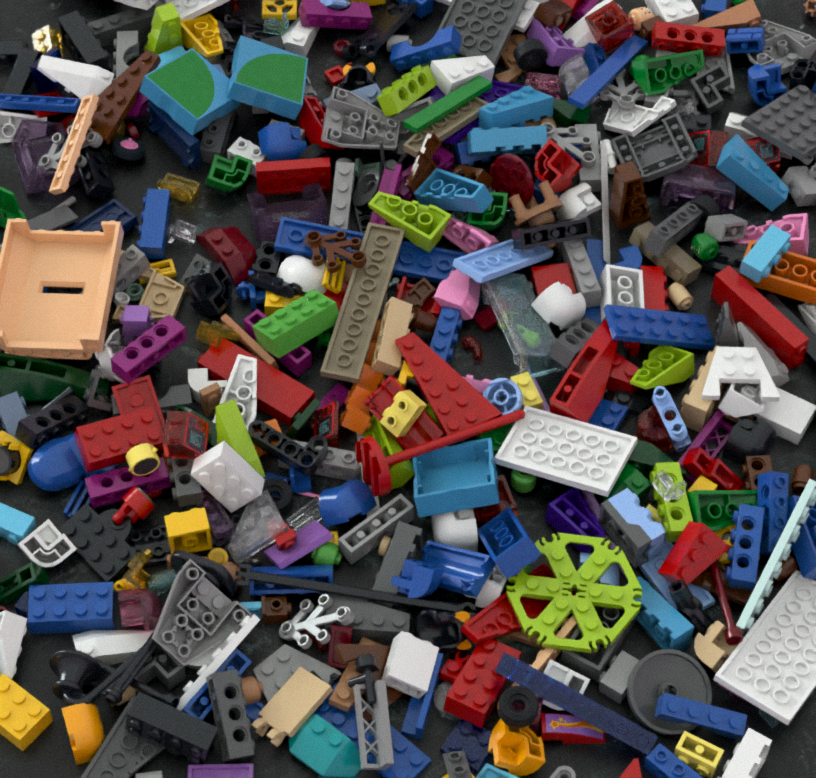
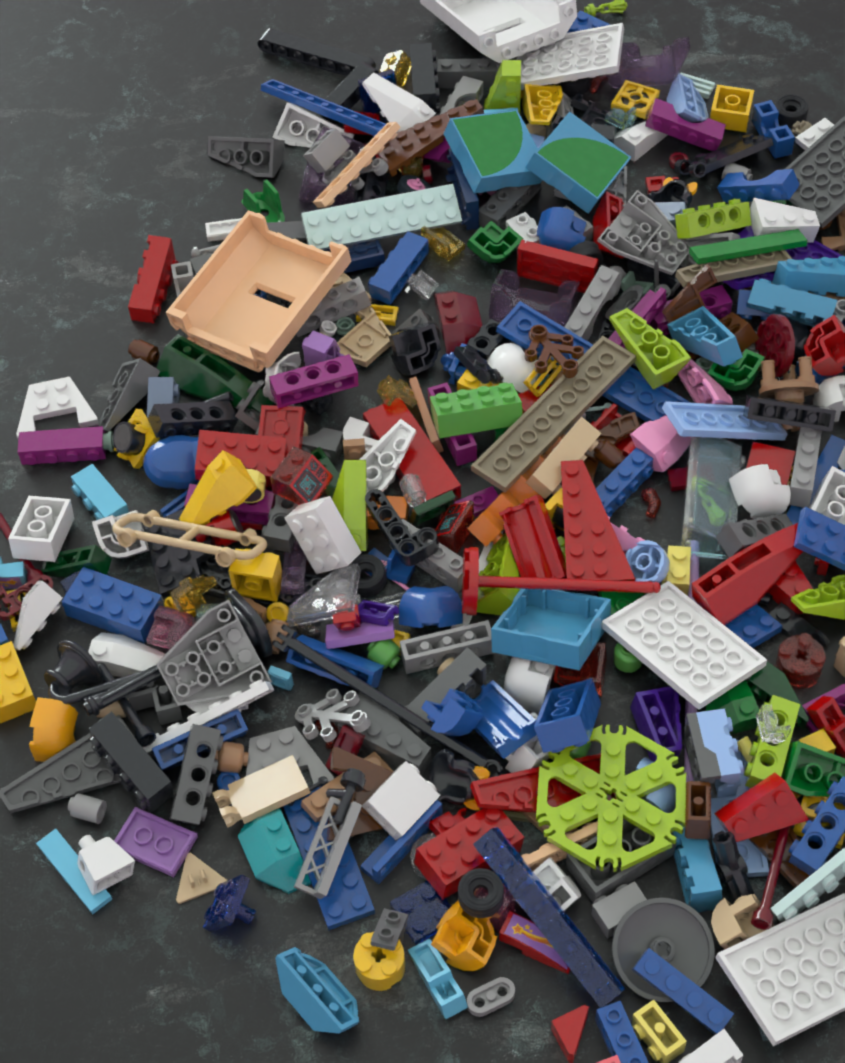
camera: 30 degrees right, 0 degrees up
(36, 140) = (326, 151): none -> light grey brick
(118, 184) = (382, 217): none -> light aqua plate
(122, 472) = (221, 486): none -> yellow wedge
(162, 525) = (224, 555): none -> tan bar
(275, 609) = (309, 692): reddish brown brick -> none
(279, 410) = (413, 490): none -> clear brick
(304, 523) = (373, 615): none -> dark purple tile
(402, 413) = (531, 538): light yellow brick -> none
(646, 574) = (698, 810): none -> reddish brown brick
(676, 427) = (817, 667): light blue connector -> none

